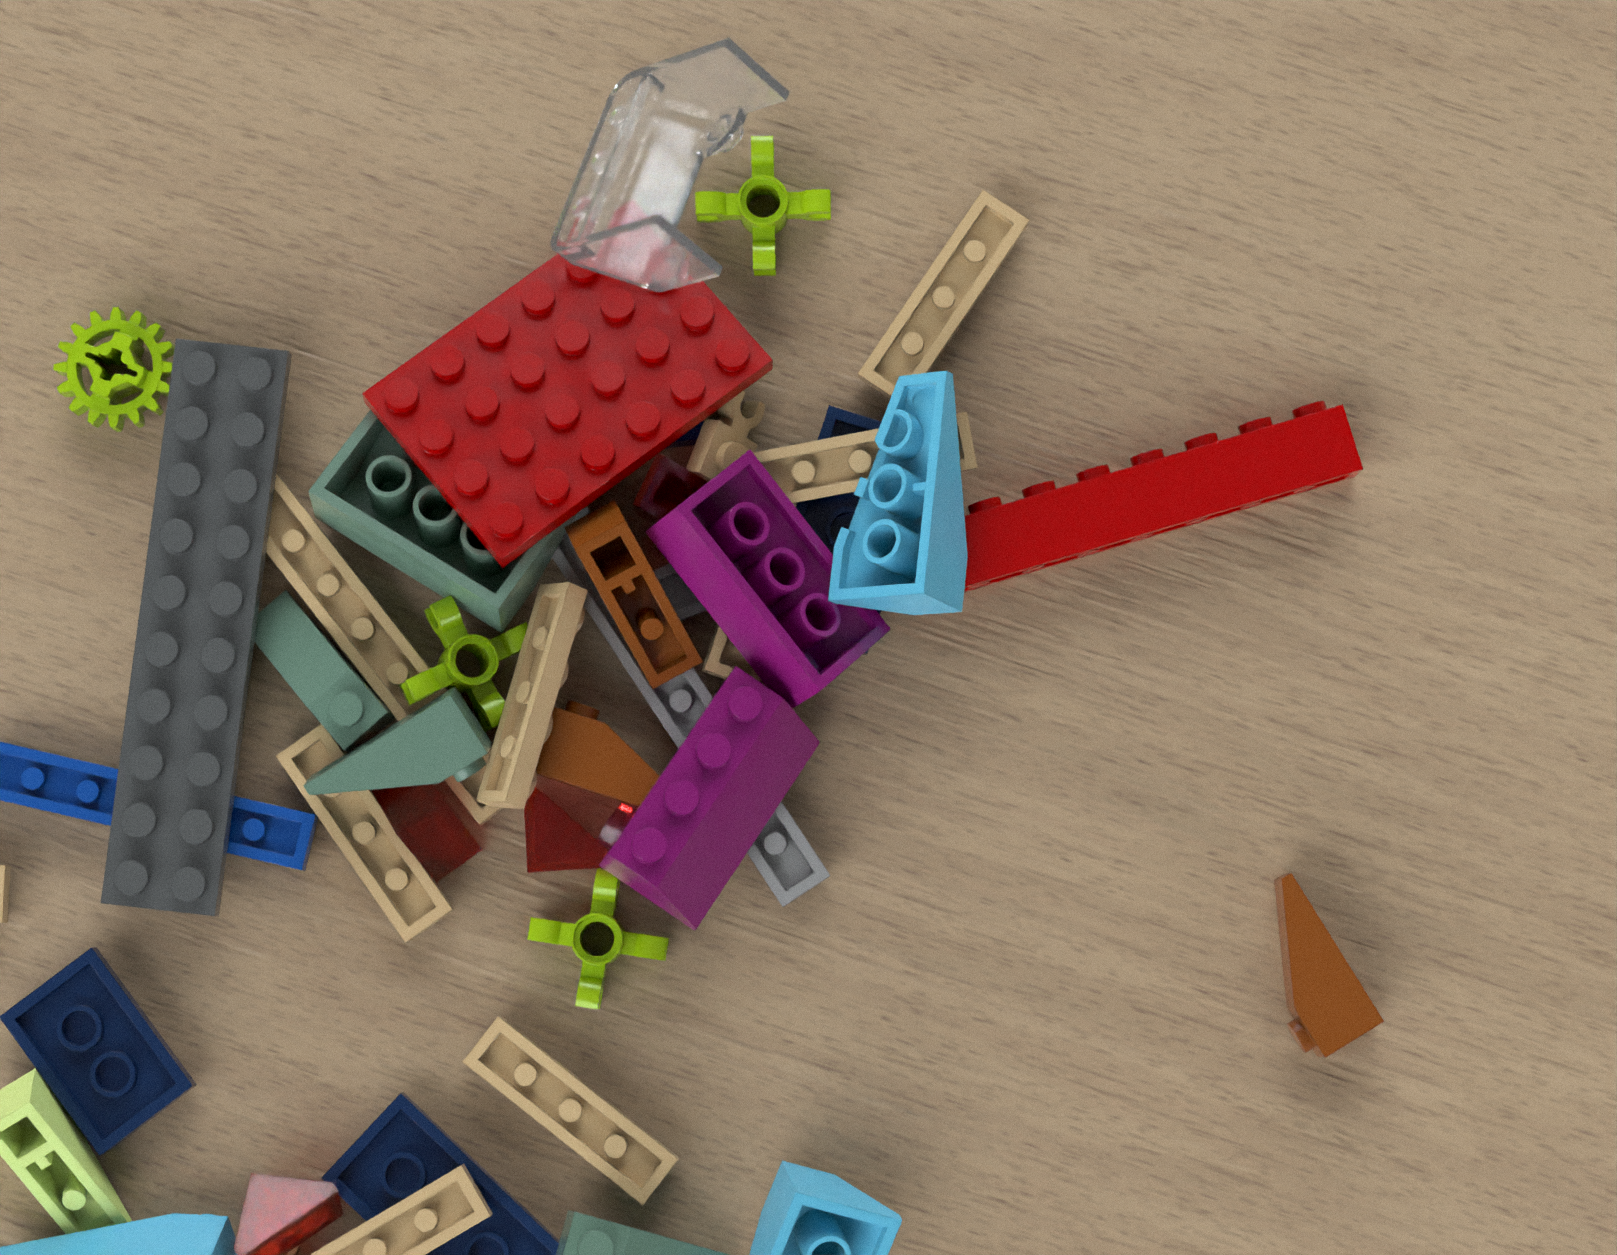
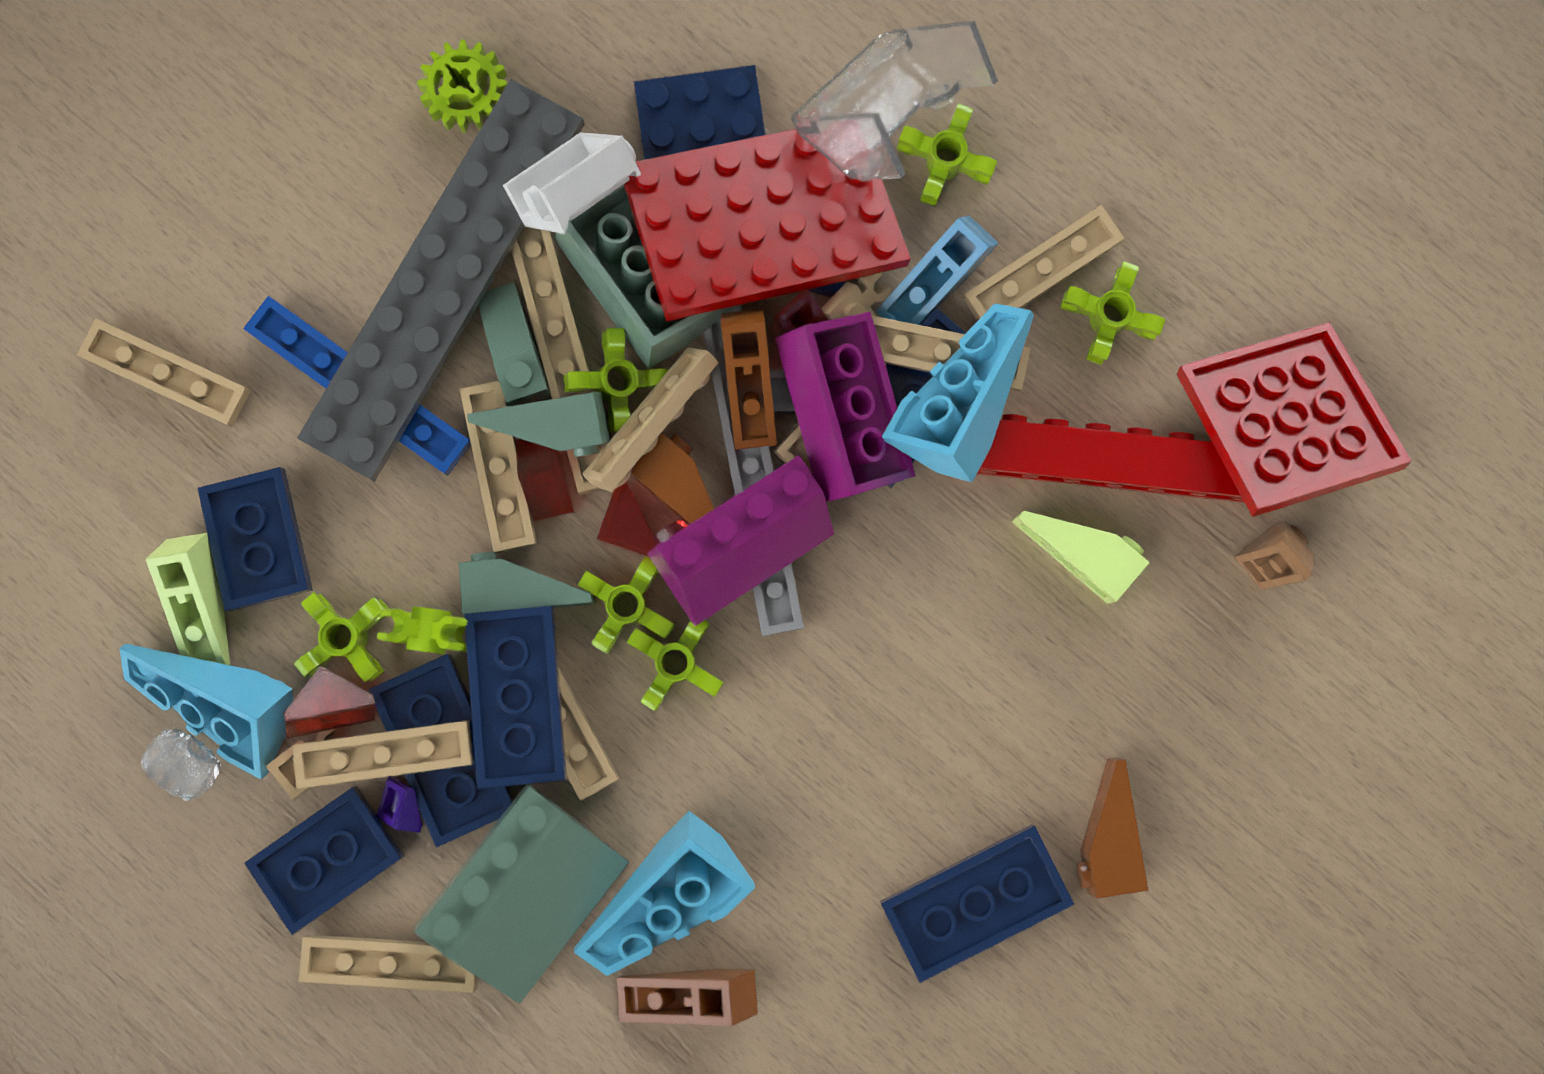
camera: 15 degrees right, 0 degrees up
(237, 1115) = (362, 661): none -> lime pin
(310, 439) = (571, 180): none -> white window
(366, 1073) = (426, 630): none -> lime pin
(428, 279) = (698, 110): none -> dark blue plate
(438, 979) = (502, 585): none -> sand green slope
(509, 1110) = (515, 697): none -> dark blue plate
(684, 1013) = (662, 683): none -> lime pin
(815, 361) = (939, 272): none -> dark azure slope
(1080, 319) = (1142, 324): none -> lime pin
(1151, 635) = (1094, 556): none -> yellowish green slope
(1183, 1125) = (976, 903): none -> dark blue plate
(1324, 365) = (1292, 418): none -> plate
(1378, 541) = (1278, 557): none -> medium nougat slope

